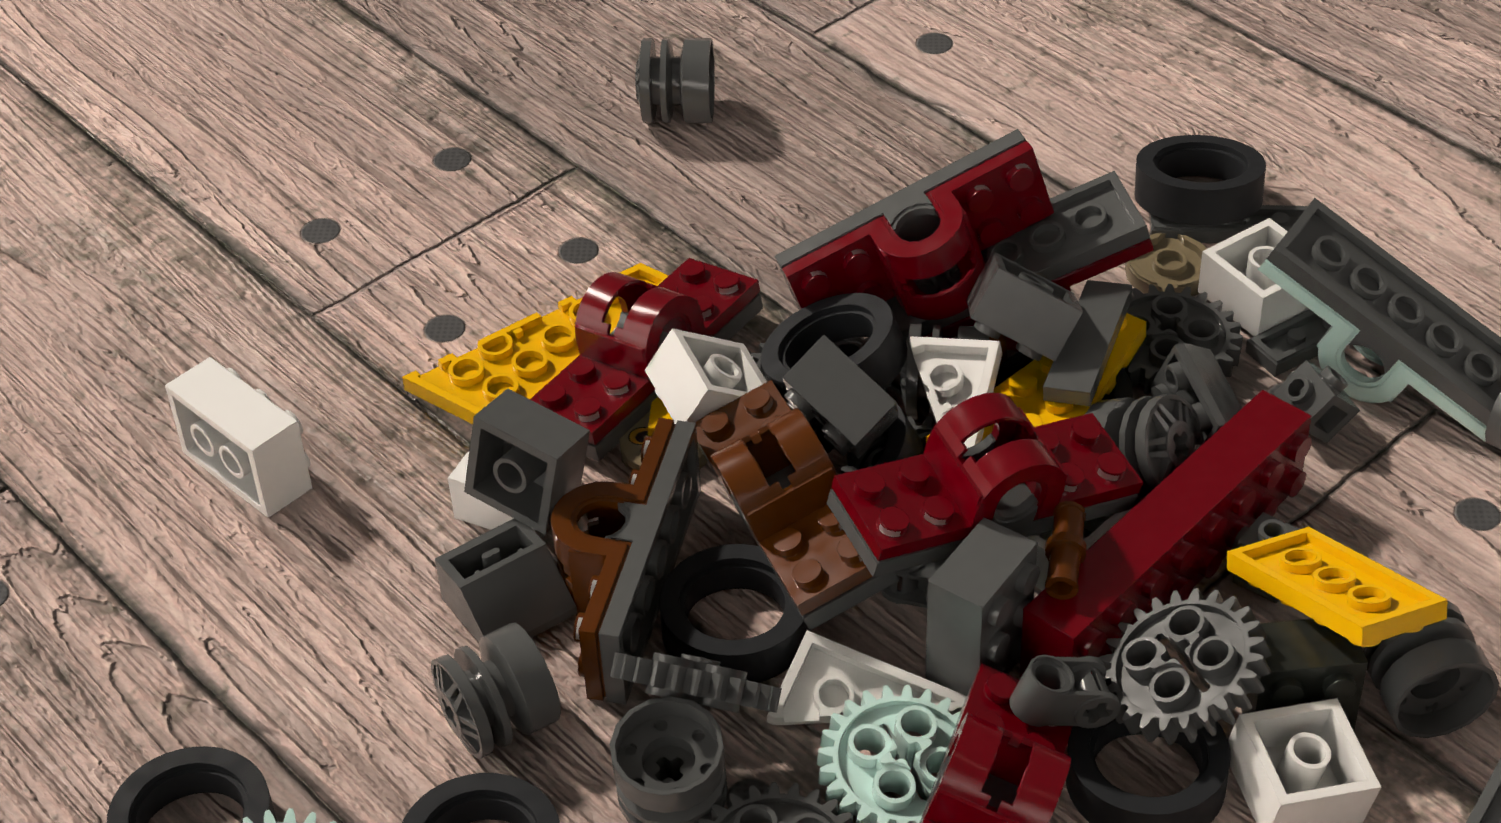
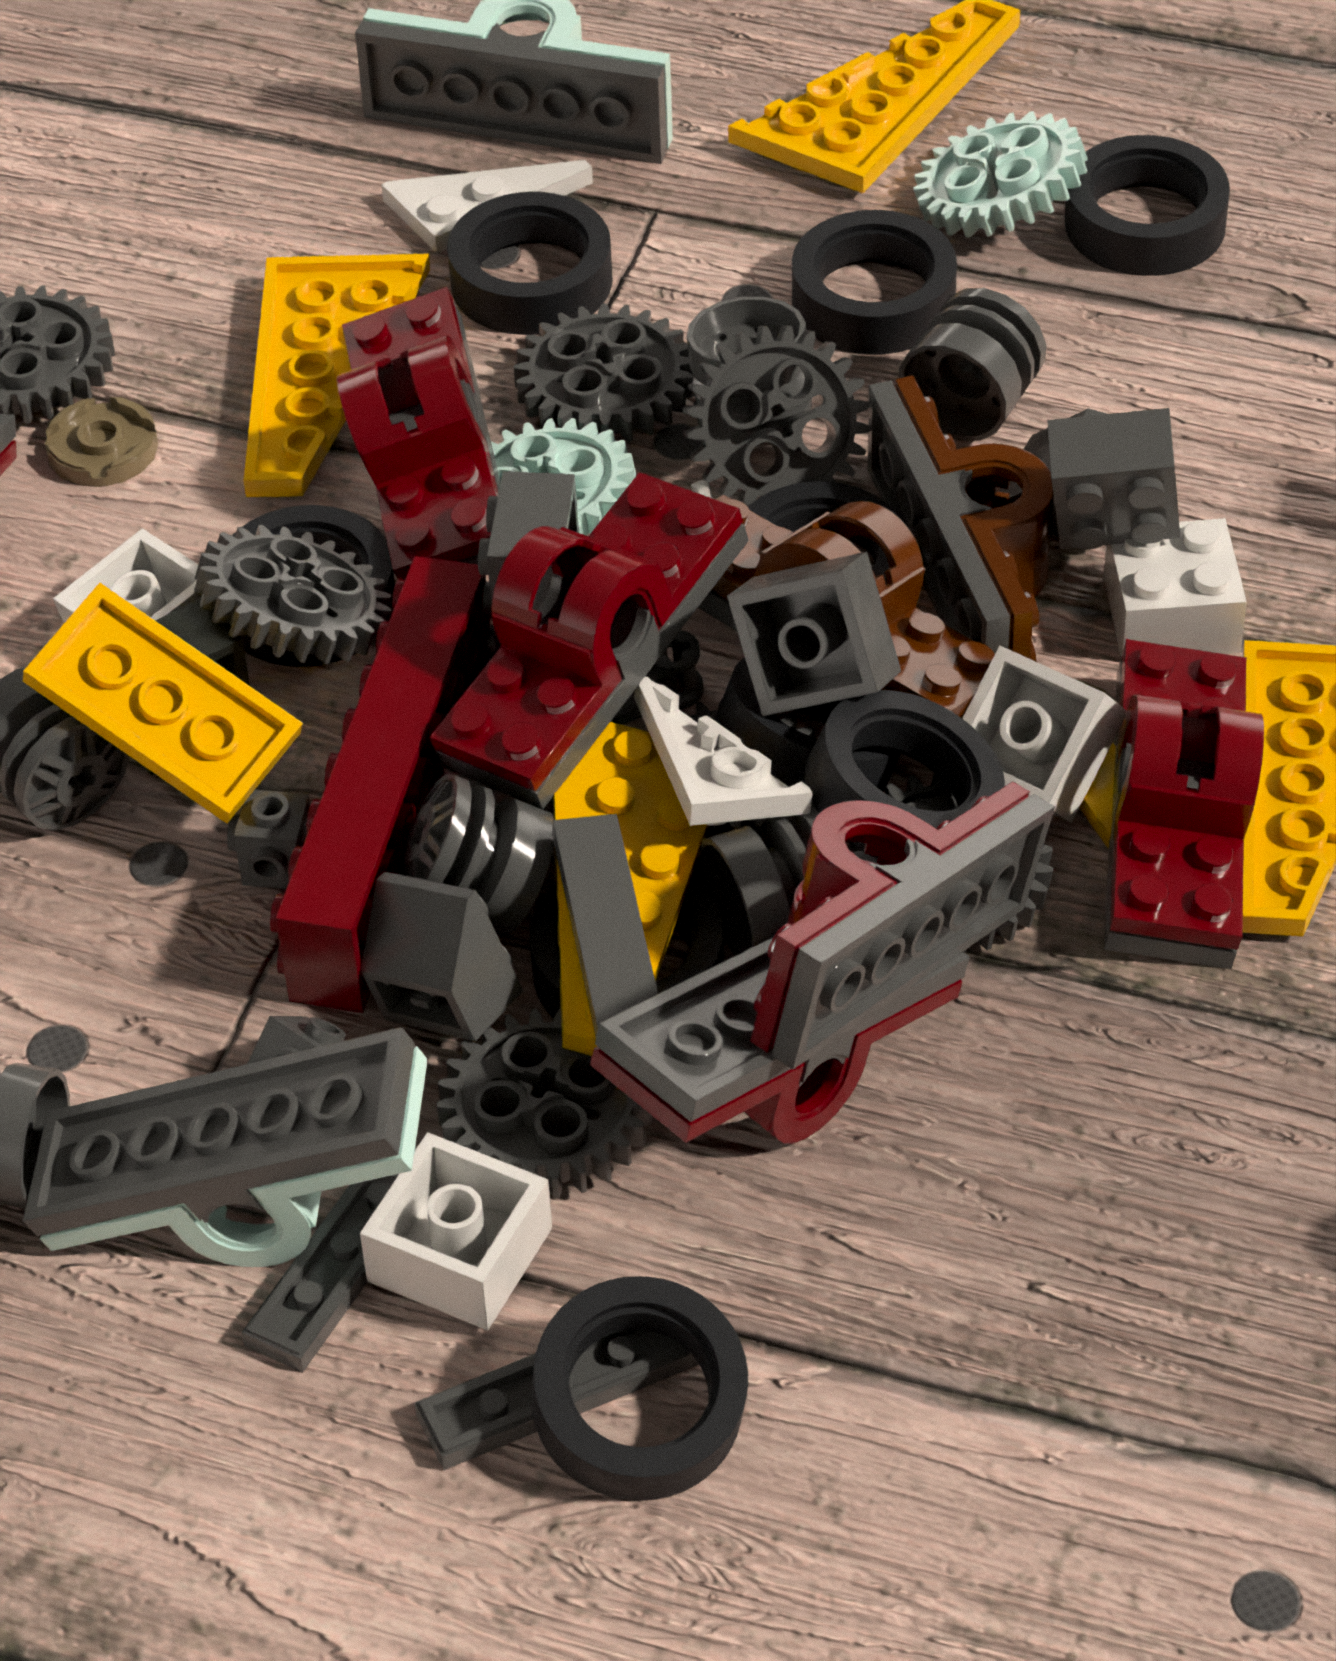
camera: 150 degrees right, 5 degrees up
(1023, 308) = (697, 876): dark grey brick -> none
(1060, 692) = (400, 515): dark grey piece -> none
(1065, 550) = (466, 612): reddish brown pin -> none
(1170, 263) = (613, 1243): dark tan tile -> none

